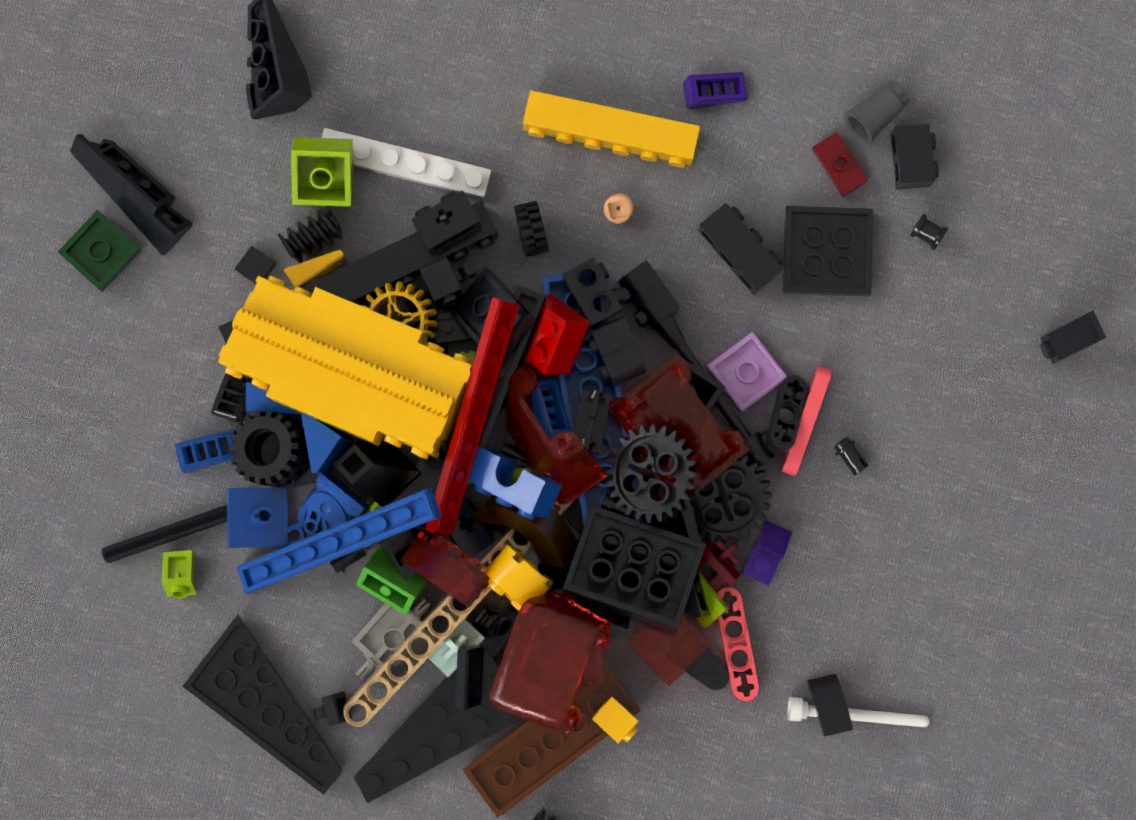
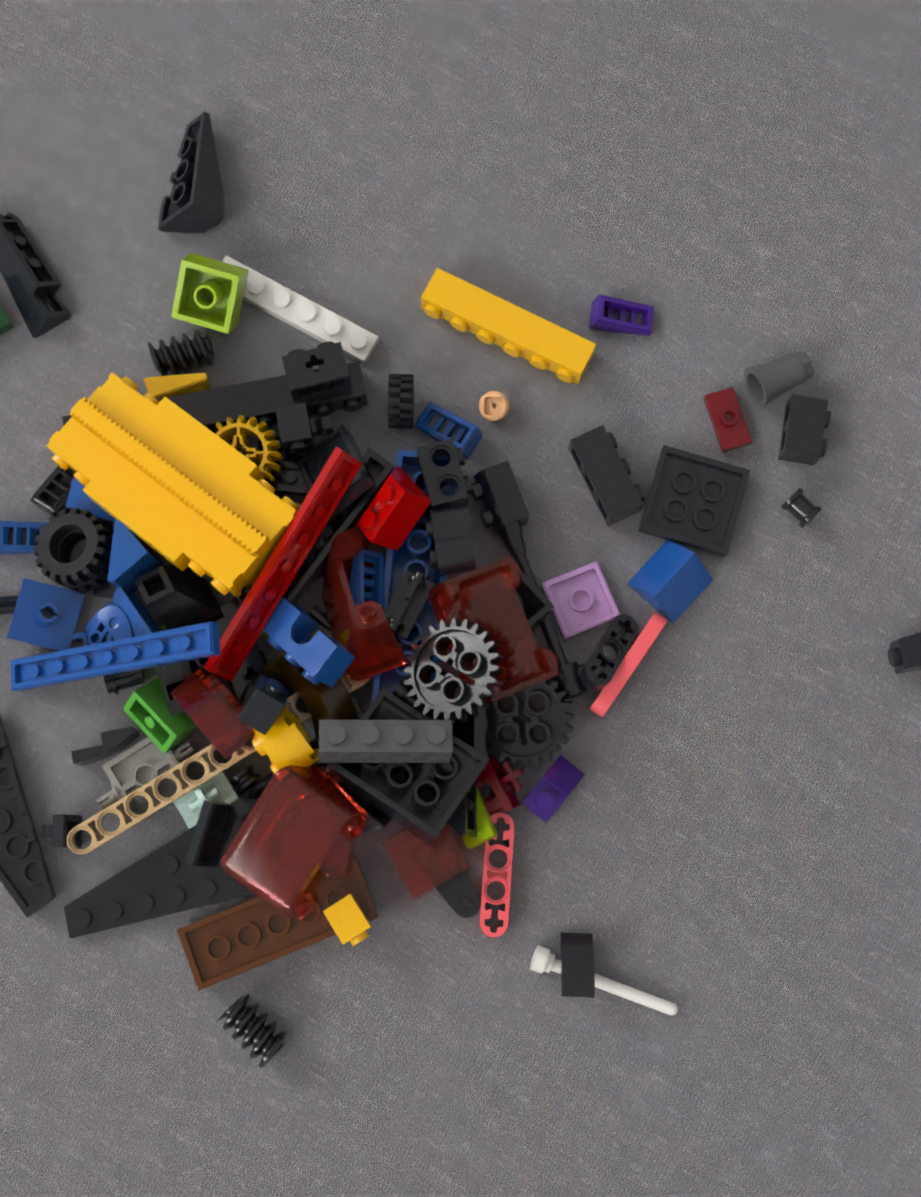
camera: 15 degrees right, 5 degrees down
(254, 265) = (120, 366): black tile -> none
(354, 617) = (112, 742): none -> black slope
(489, 547) = (263, 703): none -> black slope
(604, 250) = (472, 432): none -> blue slope
(610, 554) = (385, 741): none -> dark grey brick
(825, 331) = (671, 580): none -> blue slope
(850, 455) = (665, 712): black pin -> none

